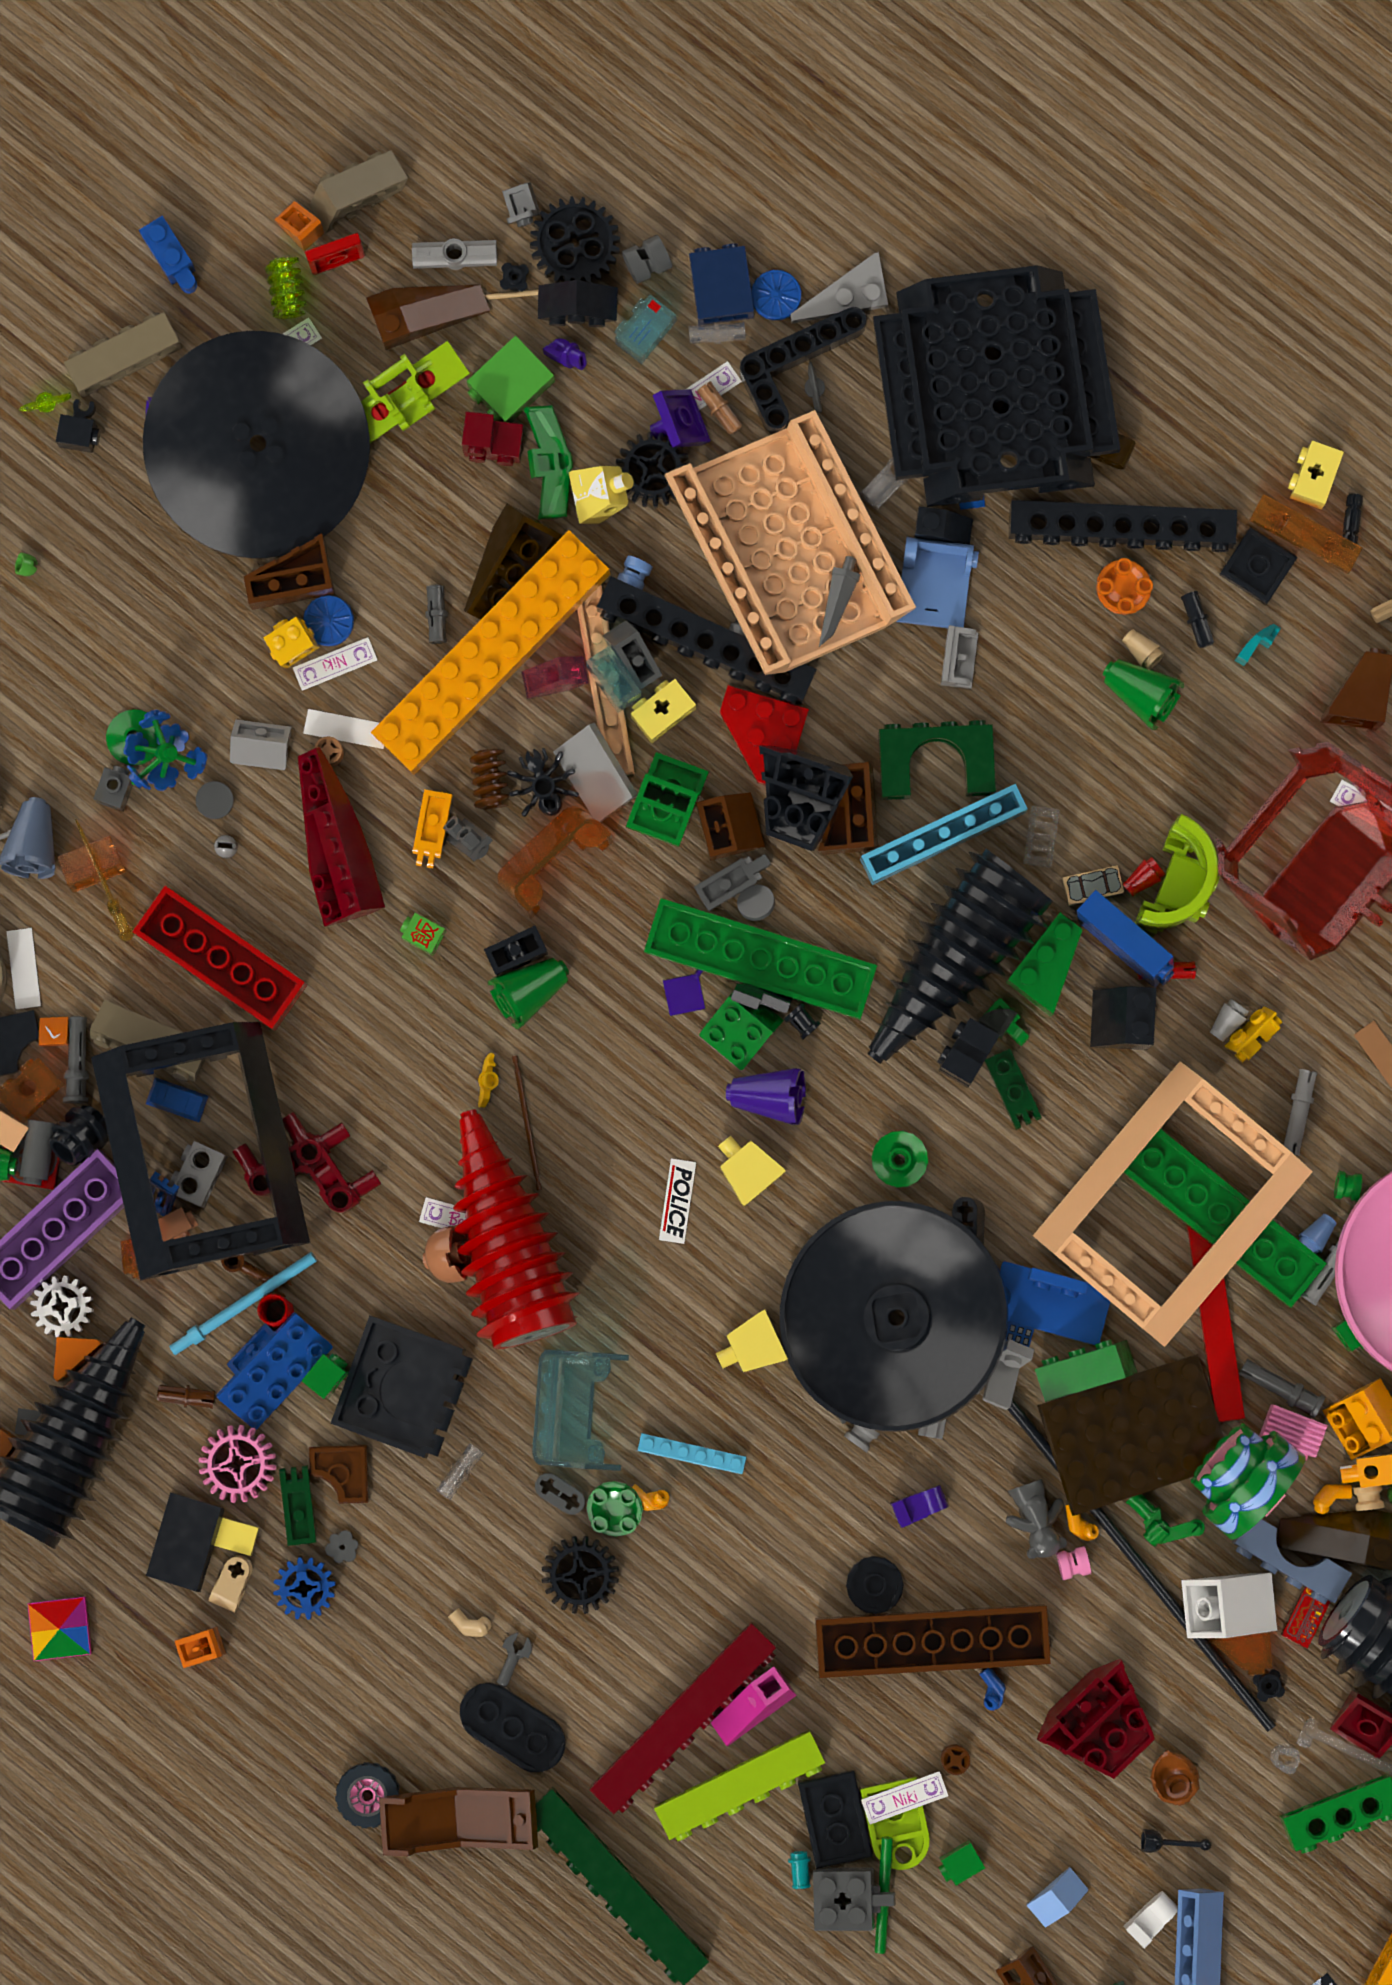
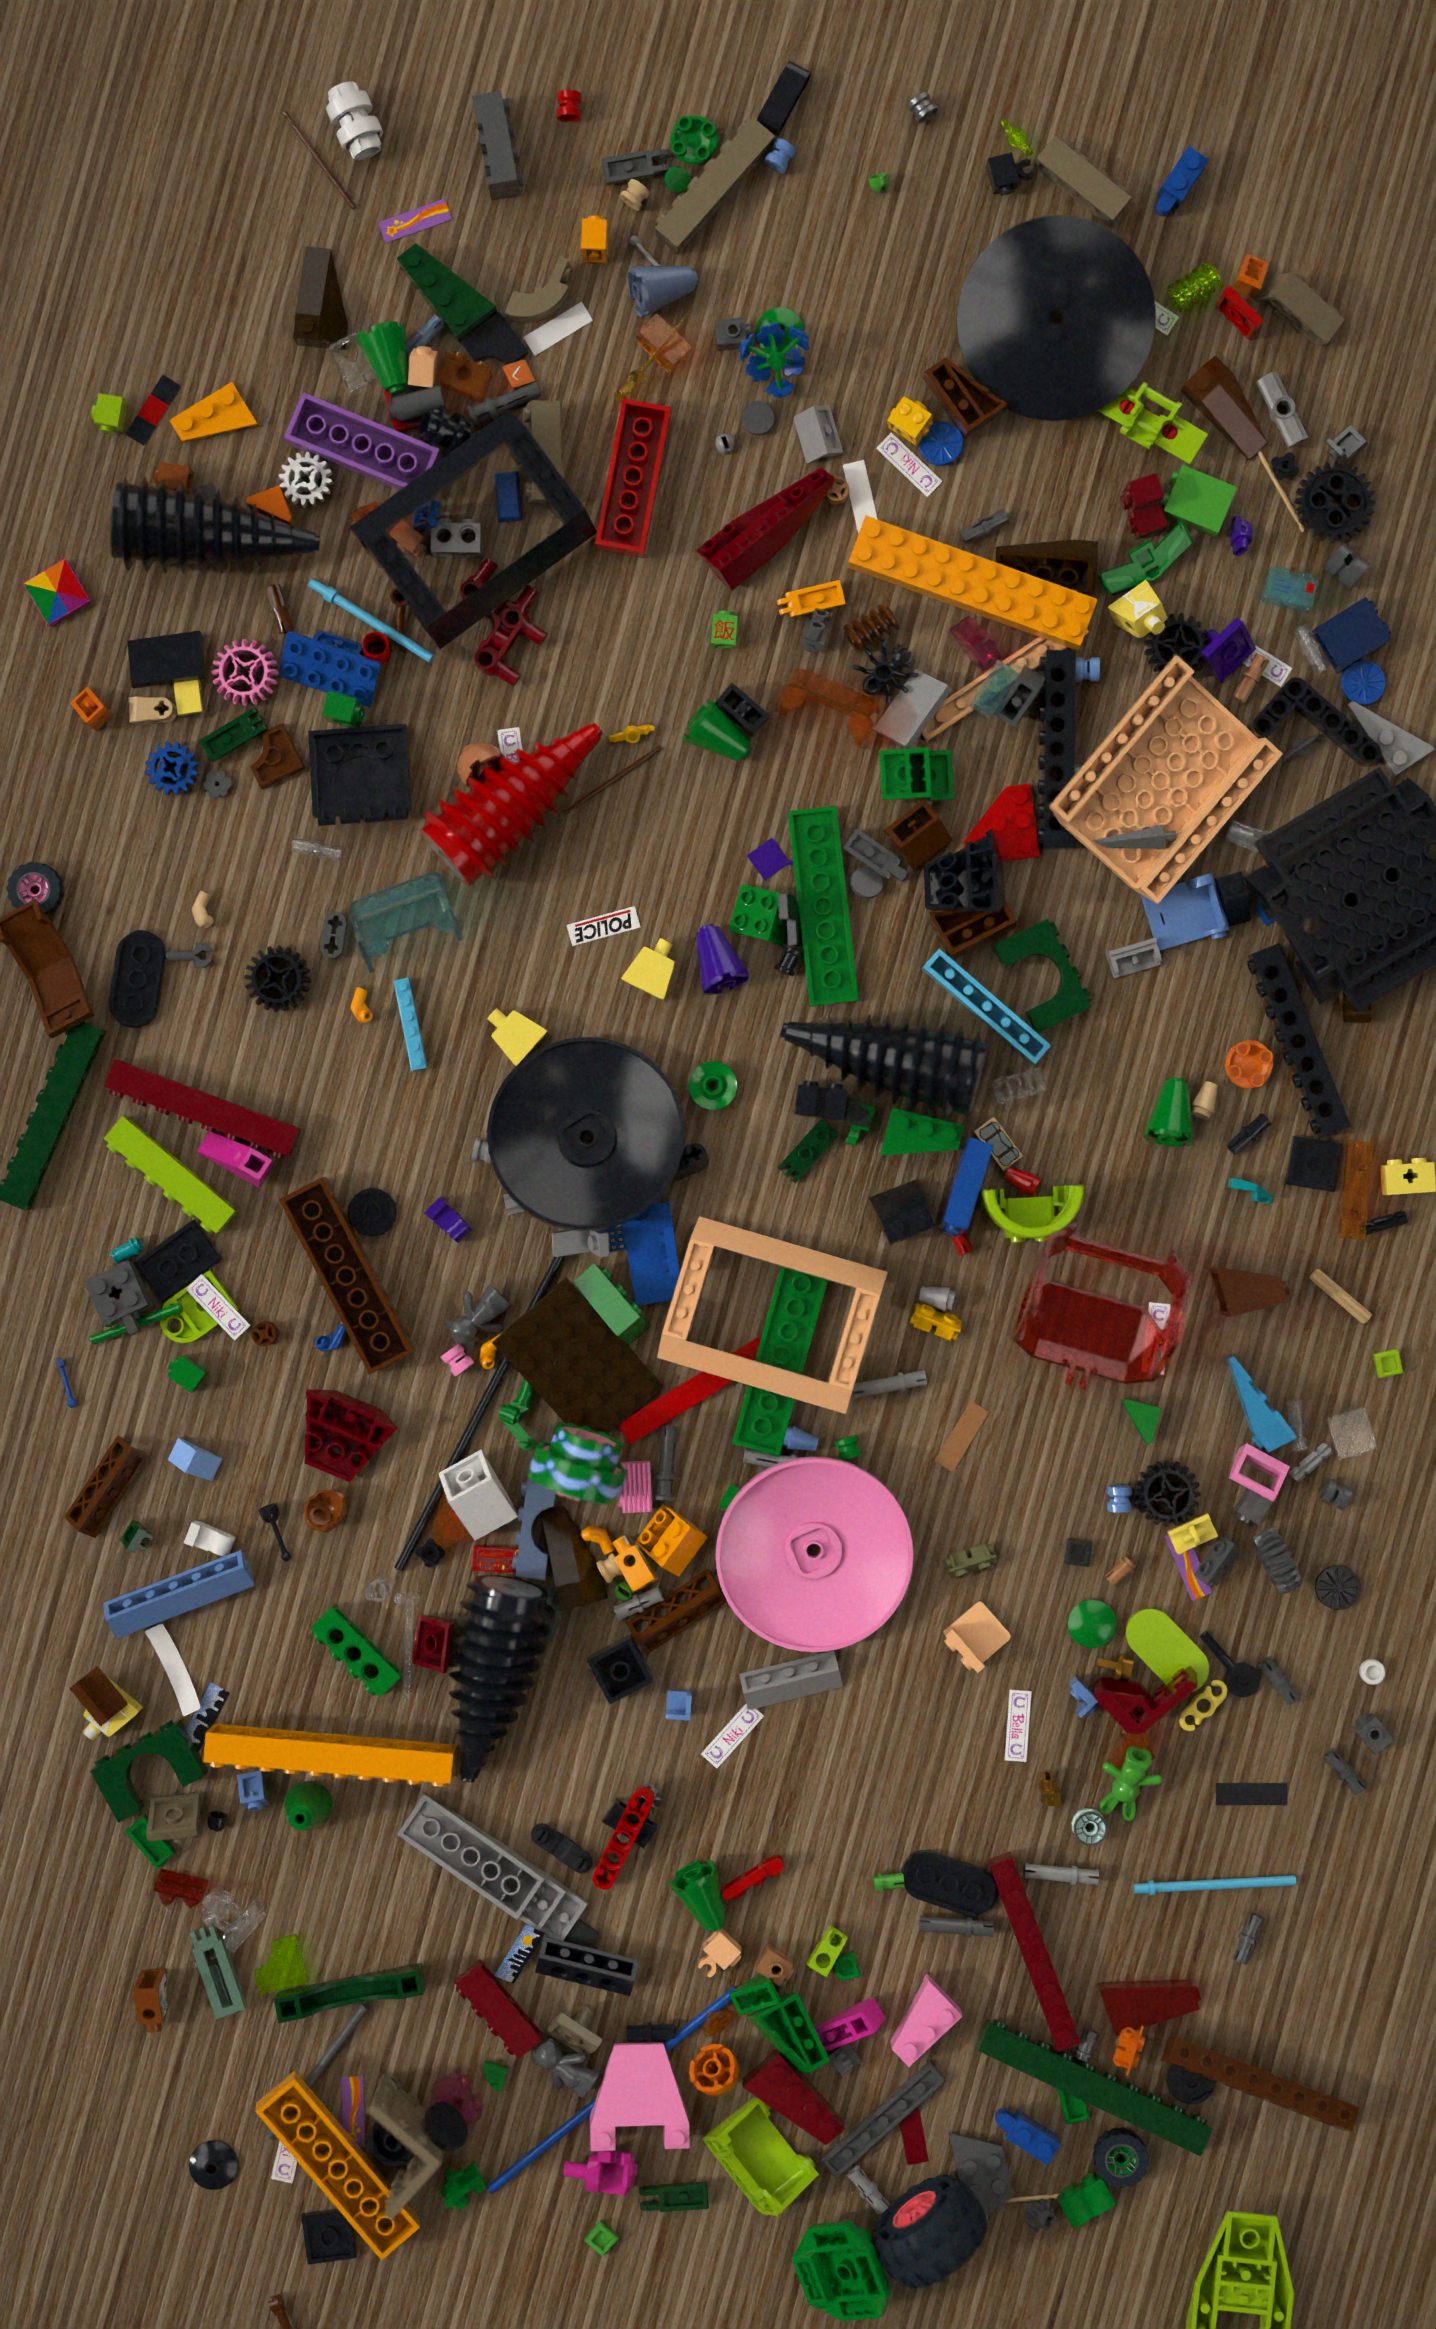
camera: 65 degrees right, 5 degrees up
(577, 302) = (1286, 525): black brick -> none
(614, 1509) = (340, 983): green dish -> none
(678, 708) = (993, 752): light yellow brick -> none

